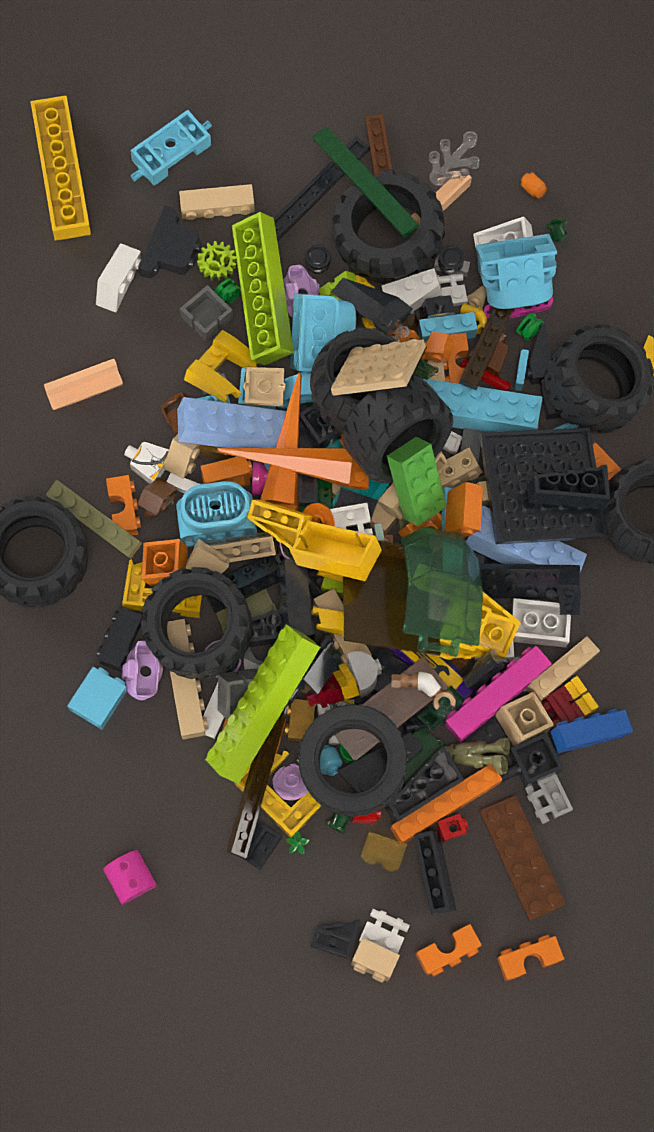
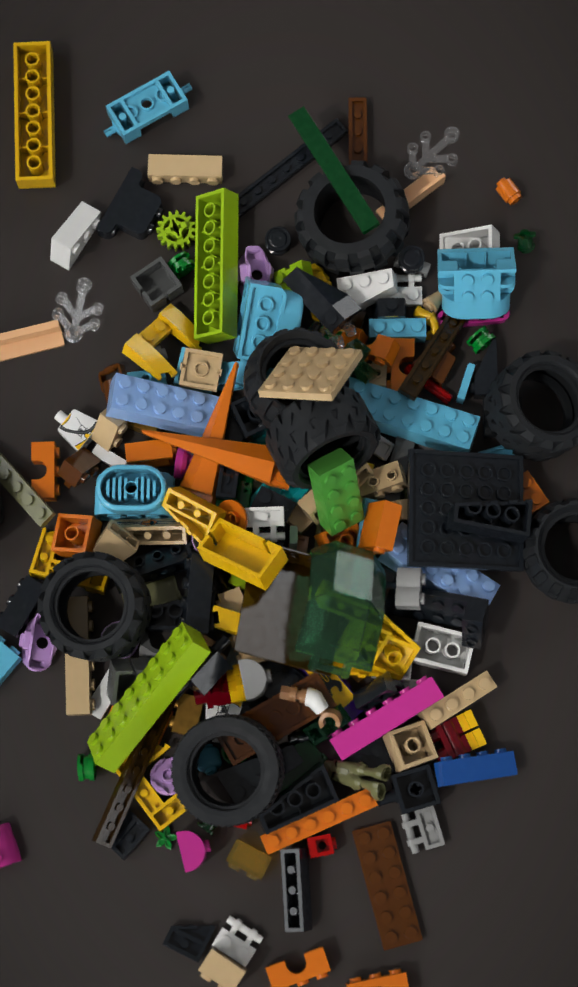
camera: 15 degrees right, 5 degrees up
(131, 367) = (77, 313): none -> clear plant
(209, 784) = (86, 767): none -> green wheel
(327, 847) = (192, 849): none -> dark pink brick
(501, 565) = (409, 589): none -> light grey brick

